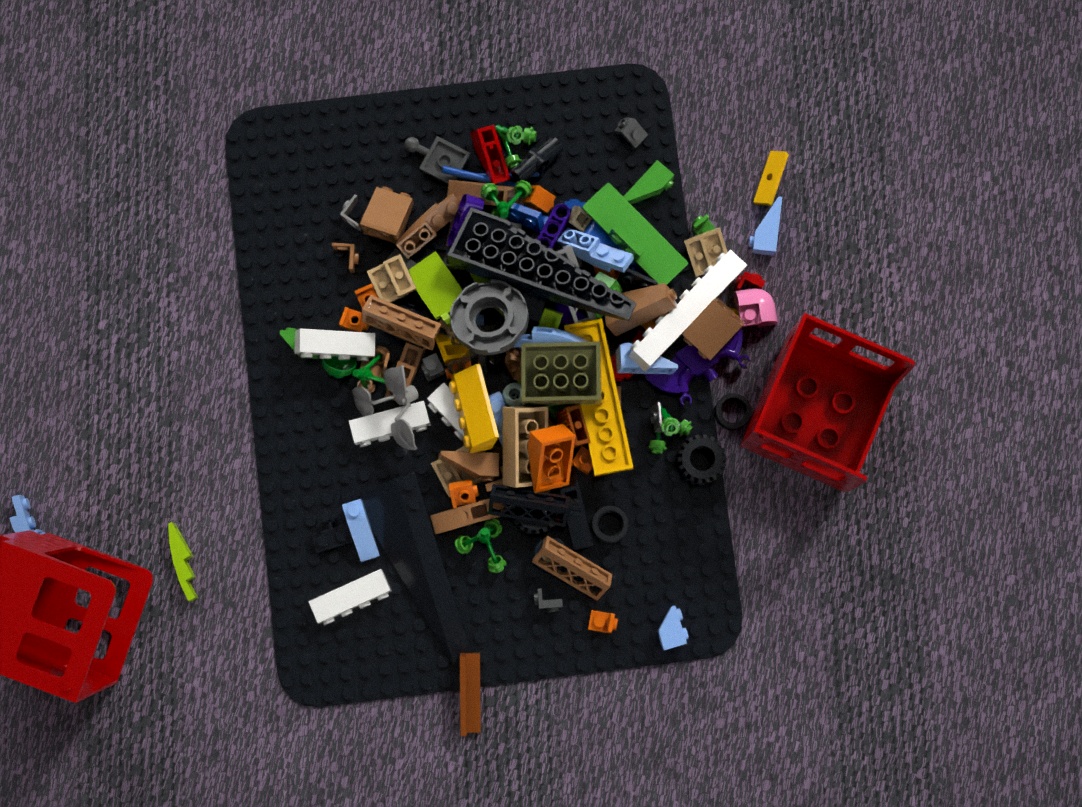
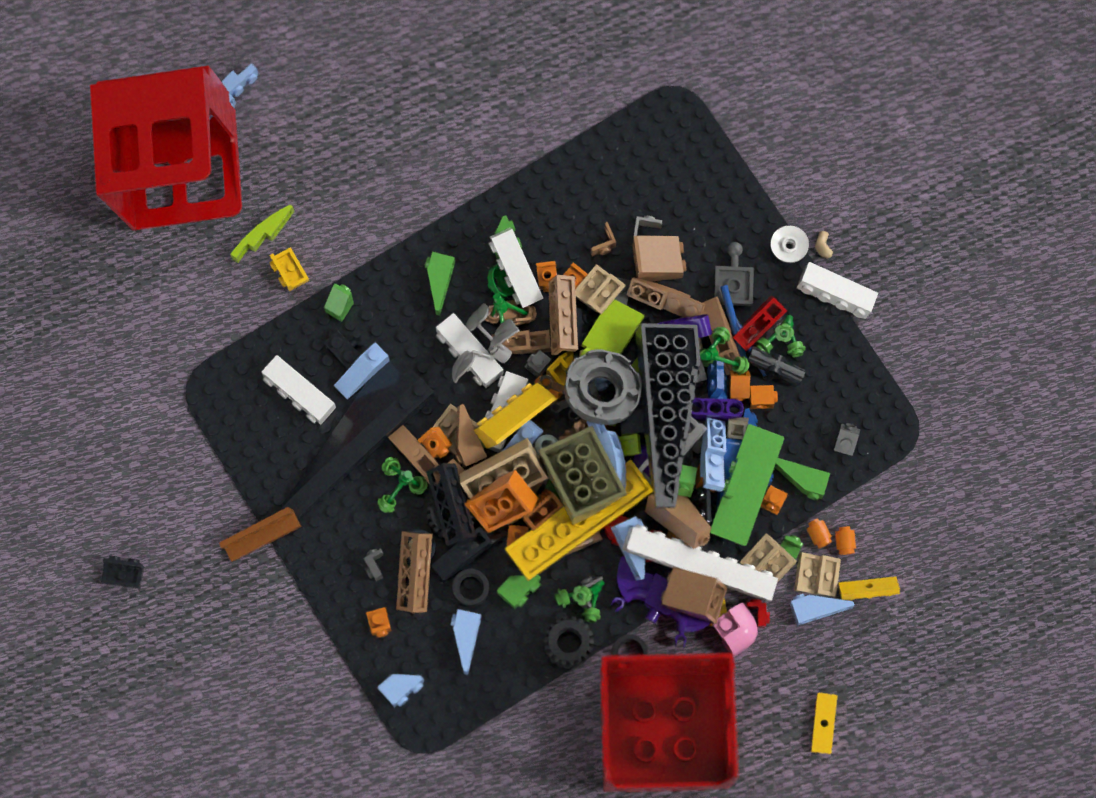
camera: 65 degrees right, 5 degrees down
(229, 552) = (289, 268): none -> yellow bracket
(286, 520) = (339, 302): none -> bright green slope
(305, 418) = (439, 273): none -> bright green slope
(429, 86) = (793, 236): none -> white dish
(446, 69) = (821, 246): none -> tan arm
(493, 75) = (837, 290): none -> white brick
(559, 184) = (762, 397): none -> orange brick
(631, 484) = (517, 588): none -> bright green slope
(650, 548) = (466, 630): none -> light blue slope
(657, 218) = (773, 500): none -> orange brick
(702, 196) = (819, 533): none -> orange brick
(719, 177) = (845, 541): none -> orange brick
(737, 216) = (817, 575): none -> tan slope
(882, 279) = (824, 711): none -> yellow tile

